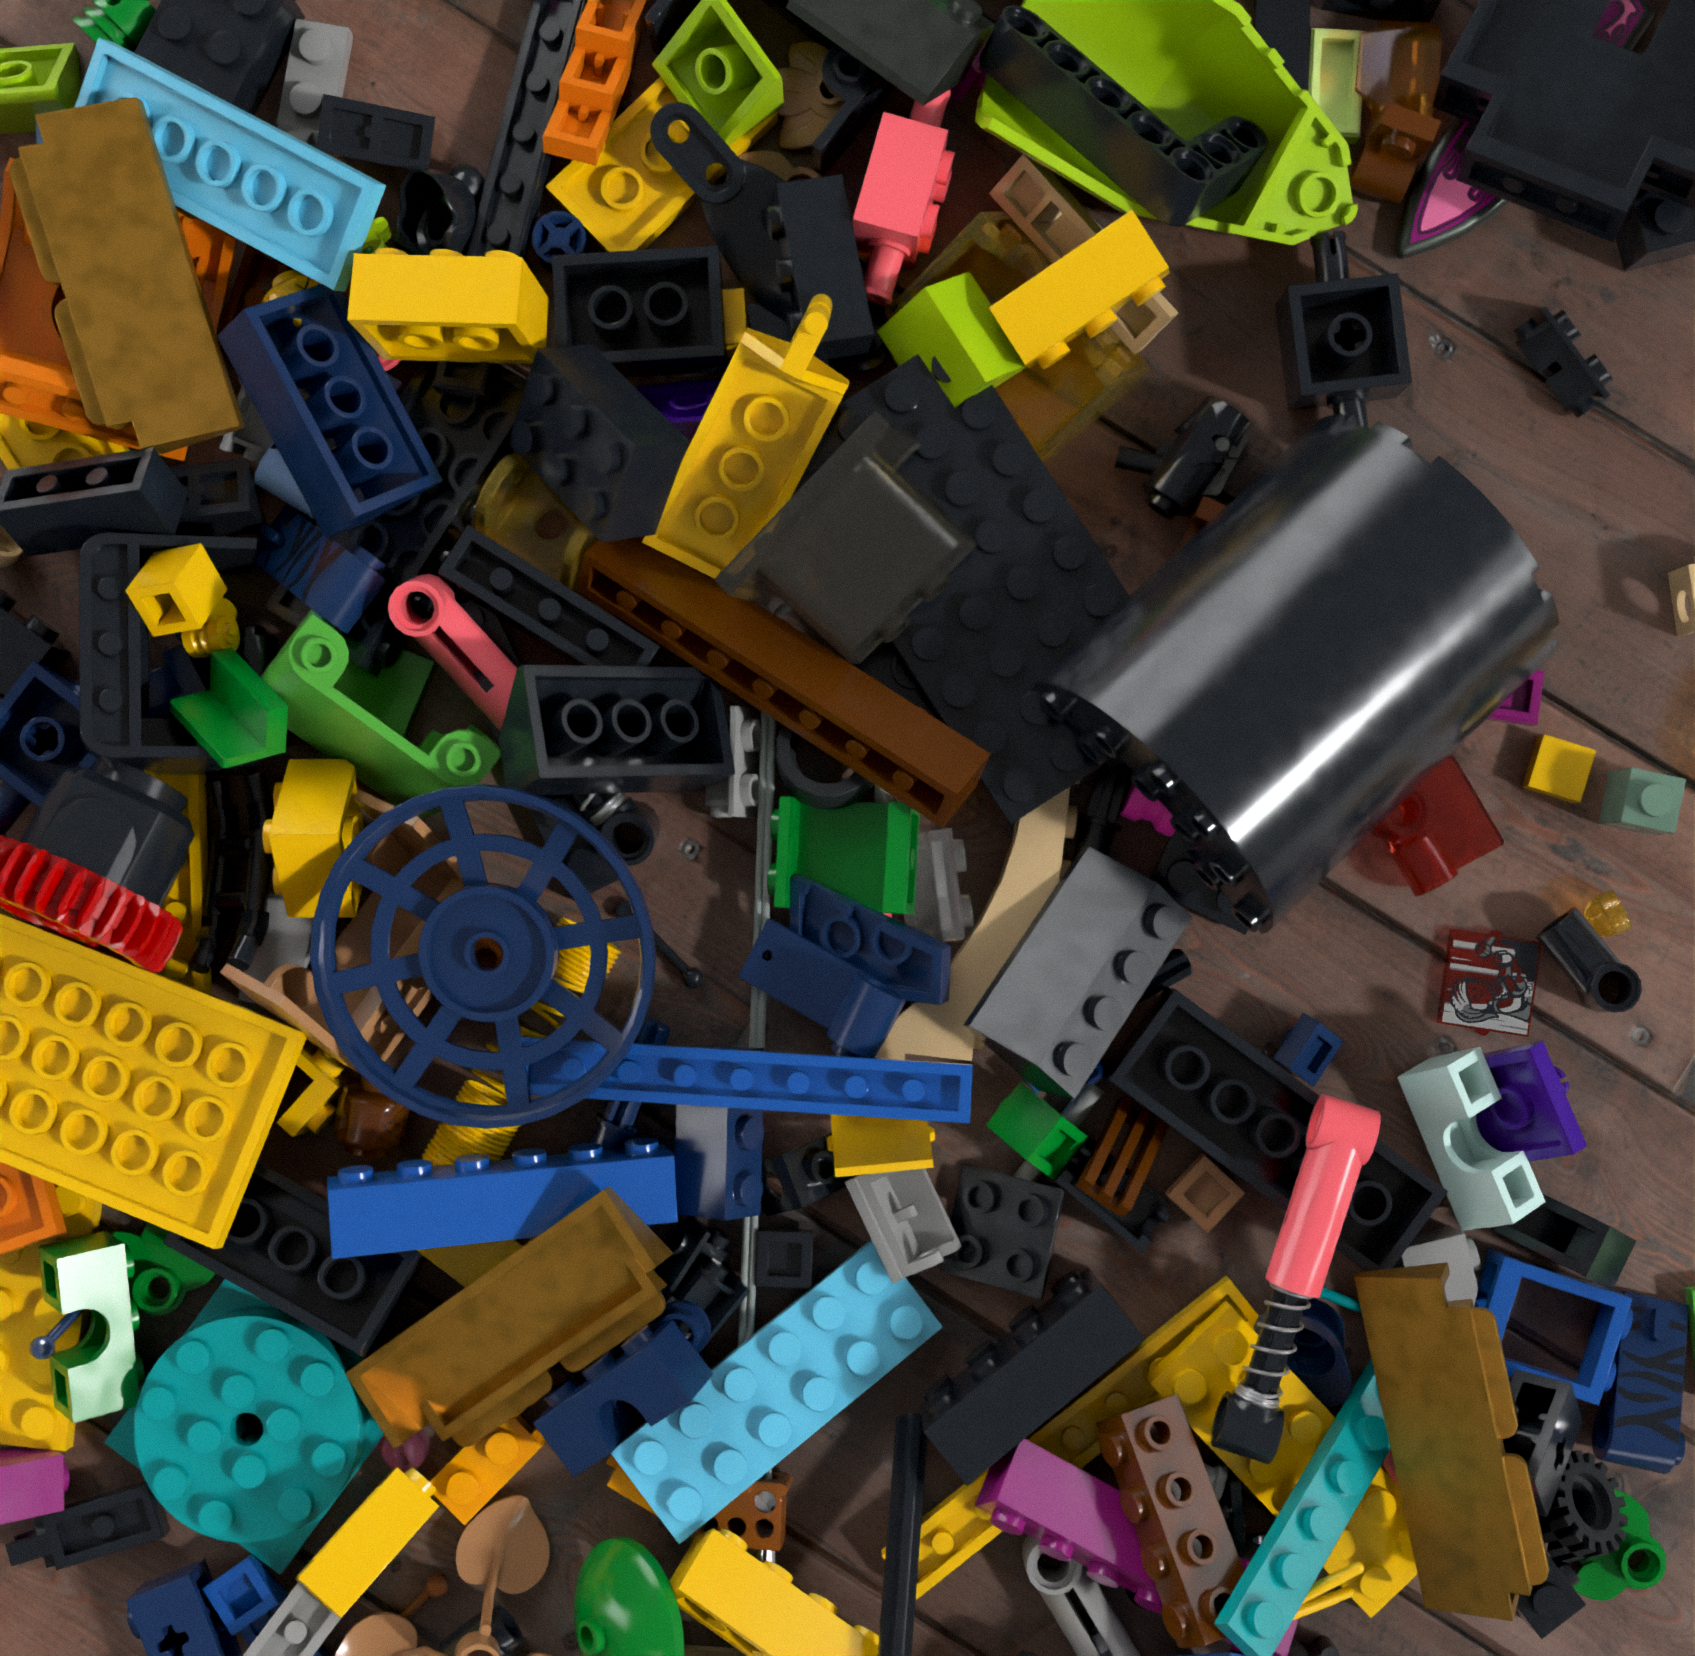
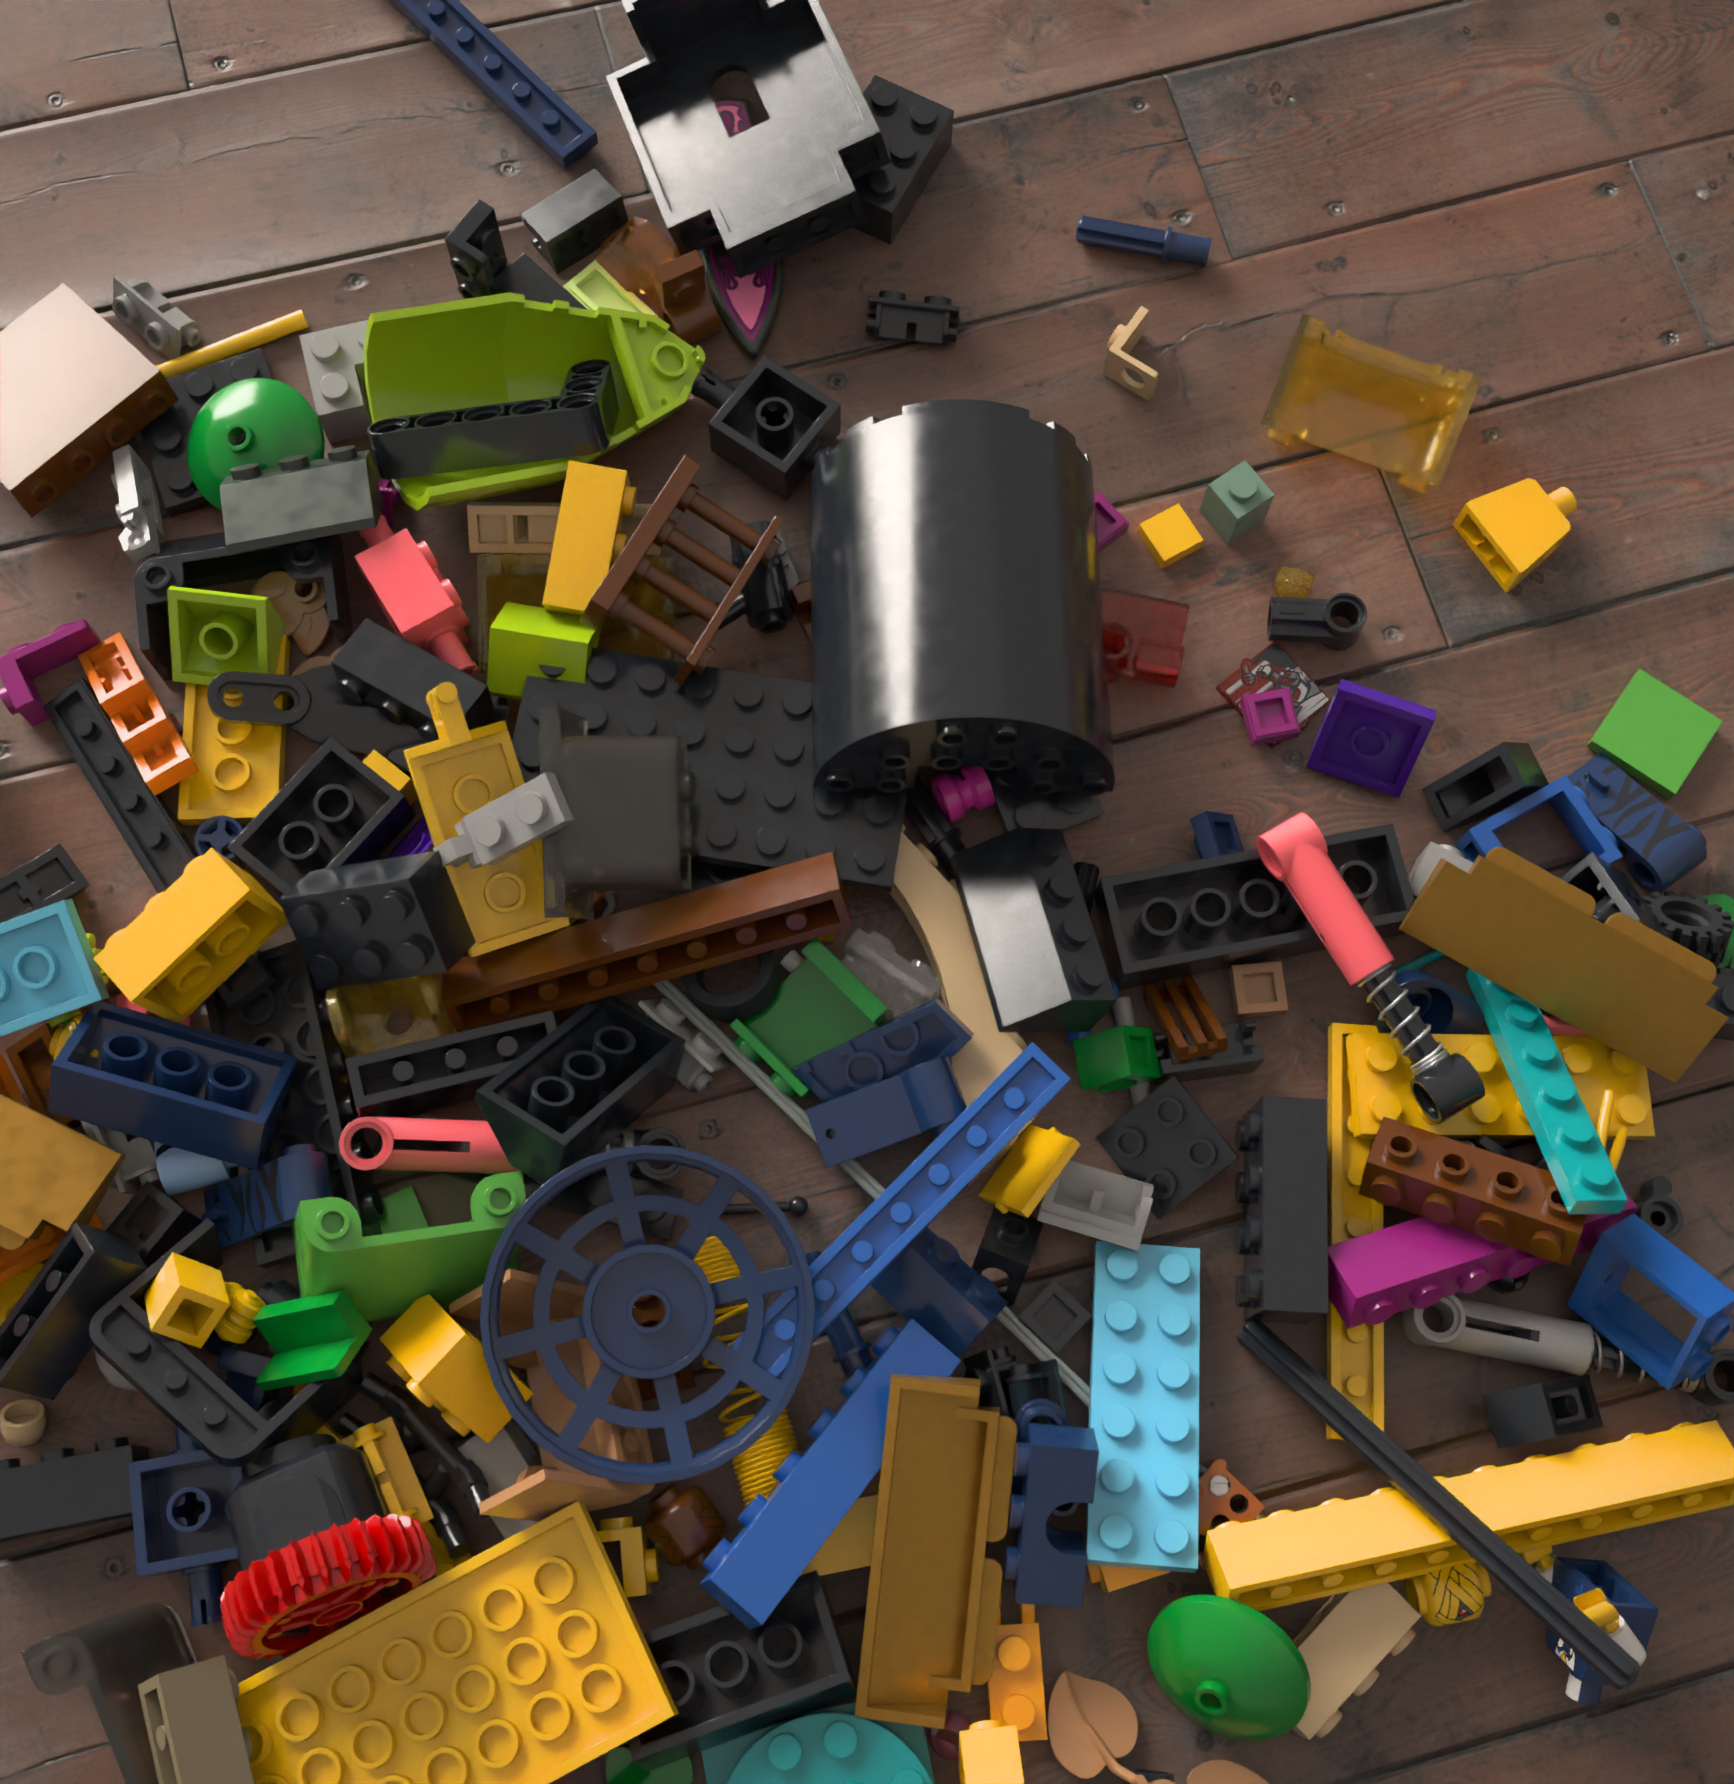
camera: 50 degrees left, 15 degrees down
(205, 864) = (391, 1469): none -> yellow hinge
(437, 209) = (114, 895): black hair -> none
(760, 478) = (508, 824): none -> light grey hinge
(1089, 358) = (637, 565): none -> reddish brown fence
(1462, 999) = (1269, 716): none -> magenta tile
(1481, 1182) = (1327, 781): light aqua arch -> none

